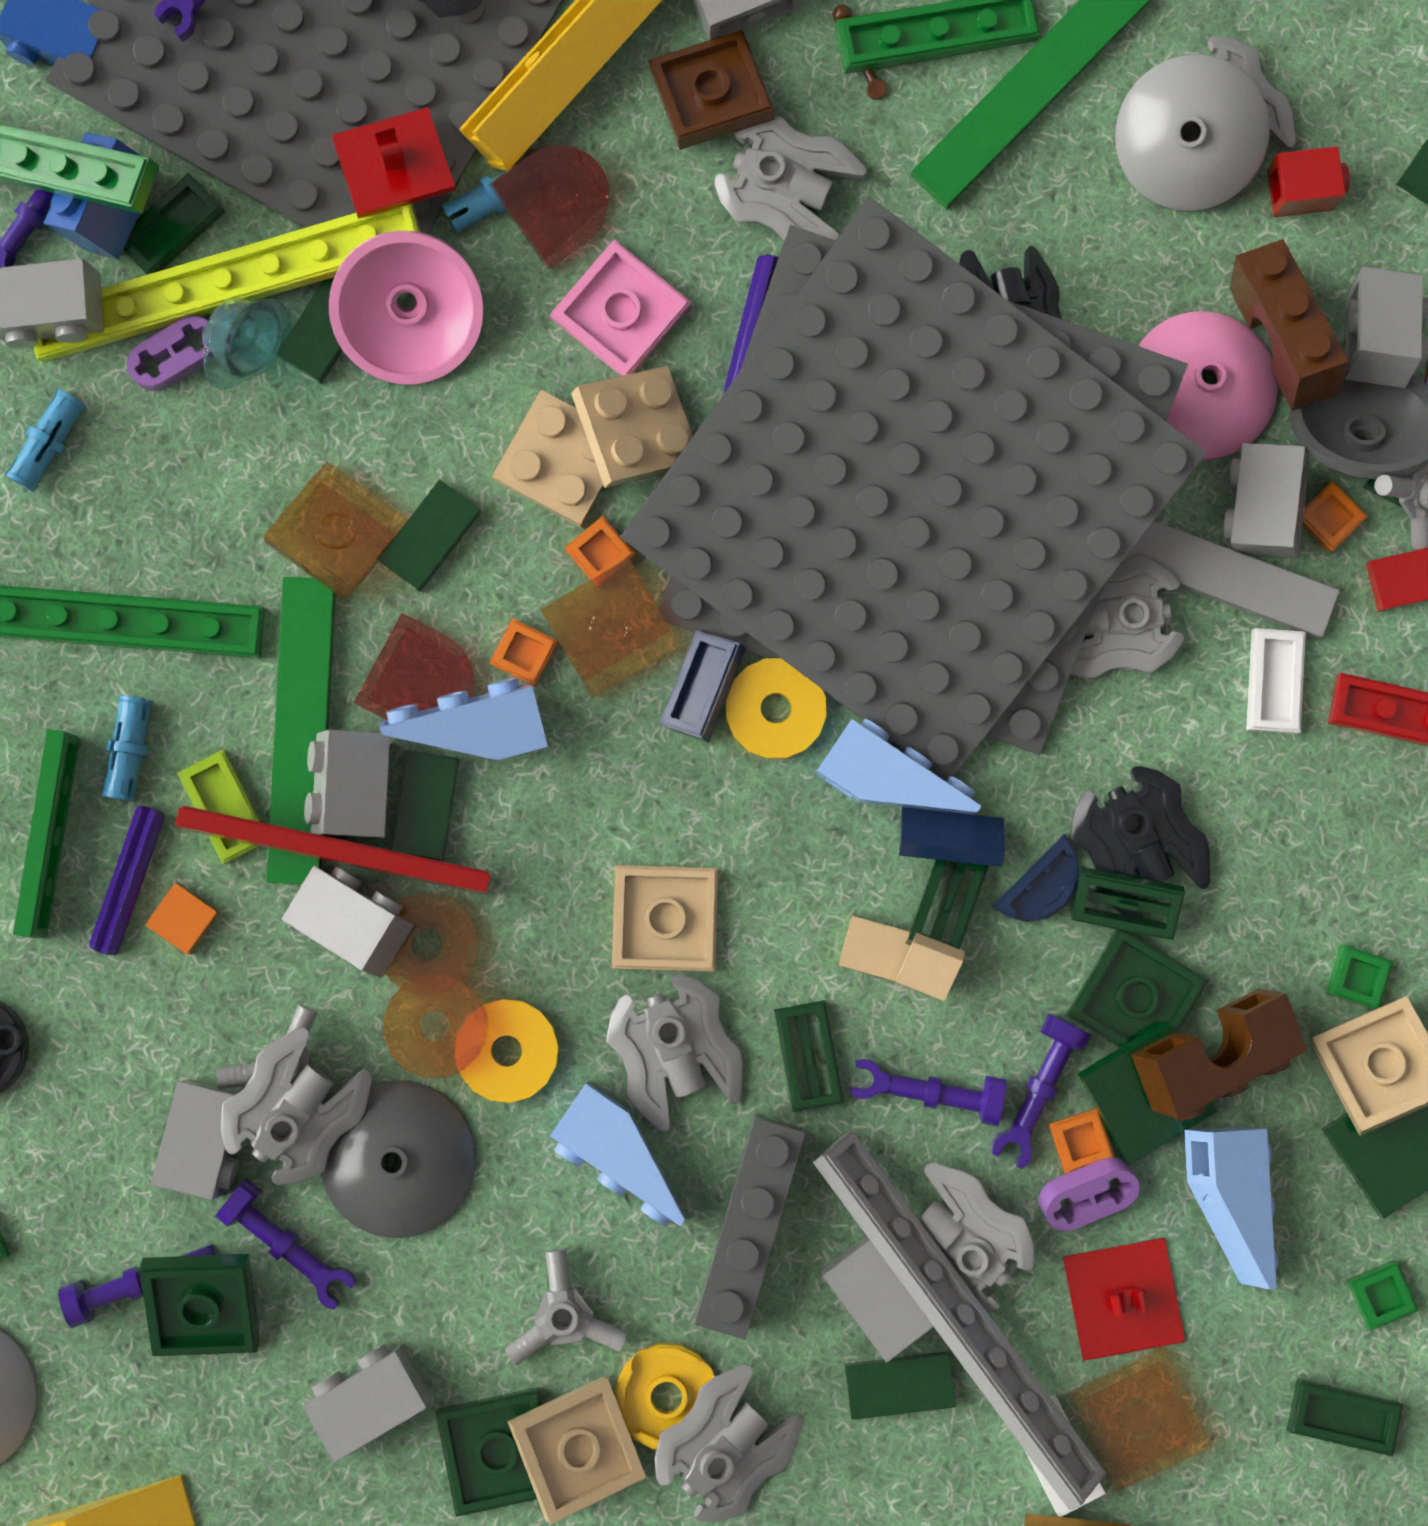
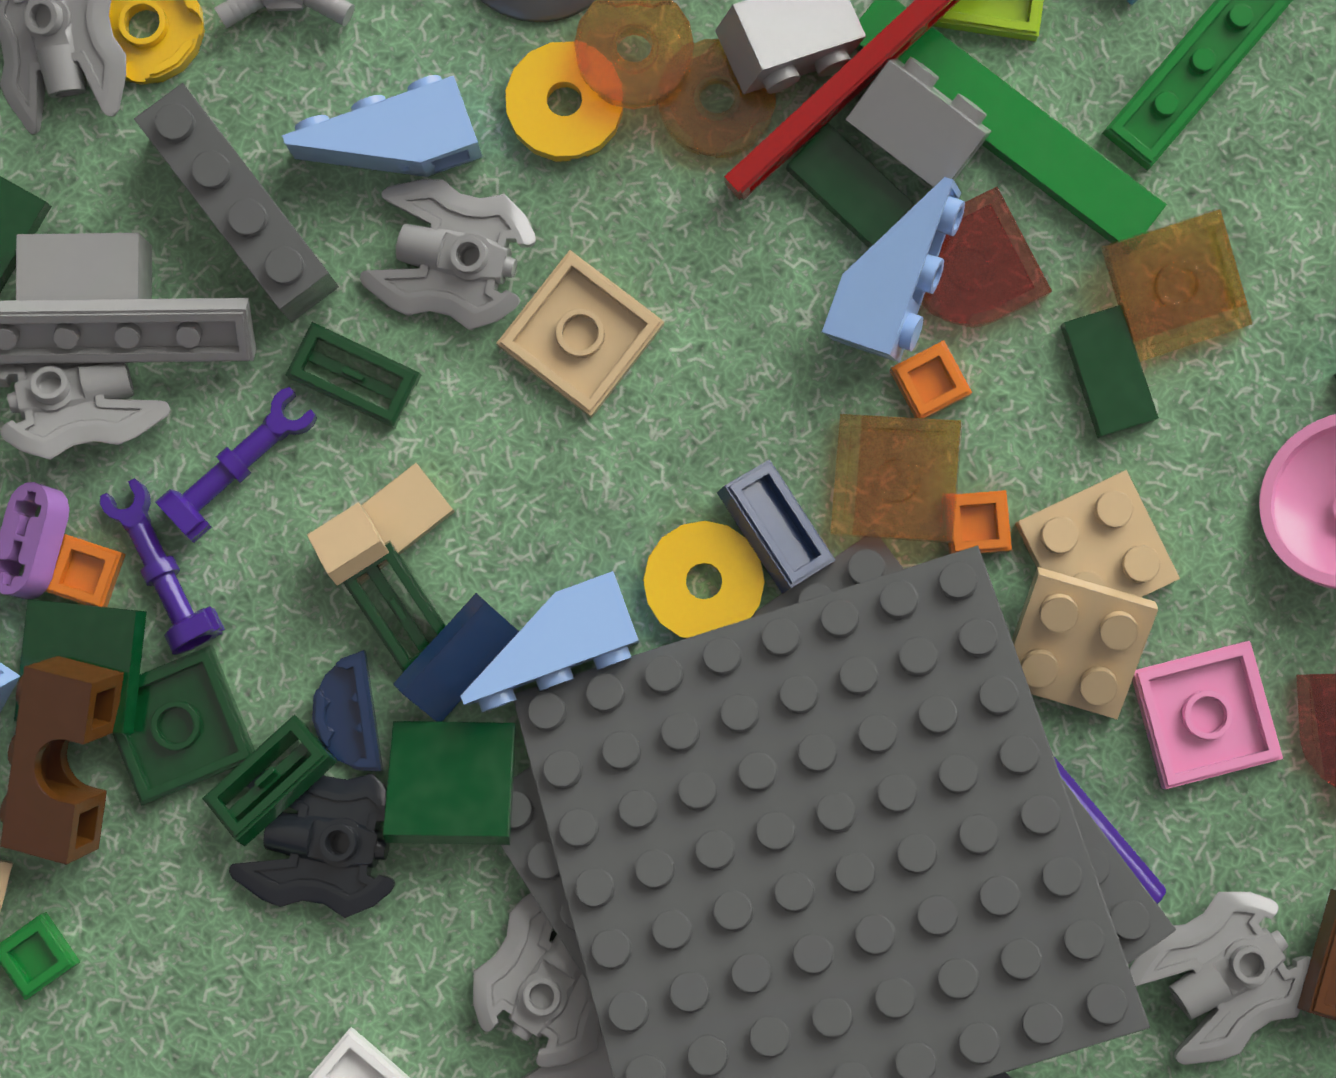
camera: 125 degrees right, 0 degrees up
(1038, 778) = (450, 783): none -> dark green tile

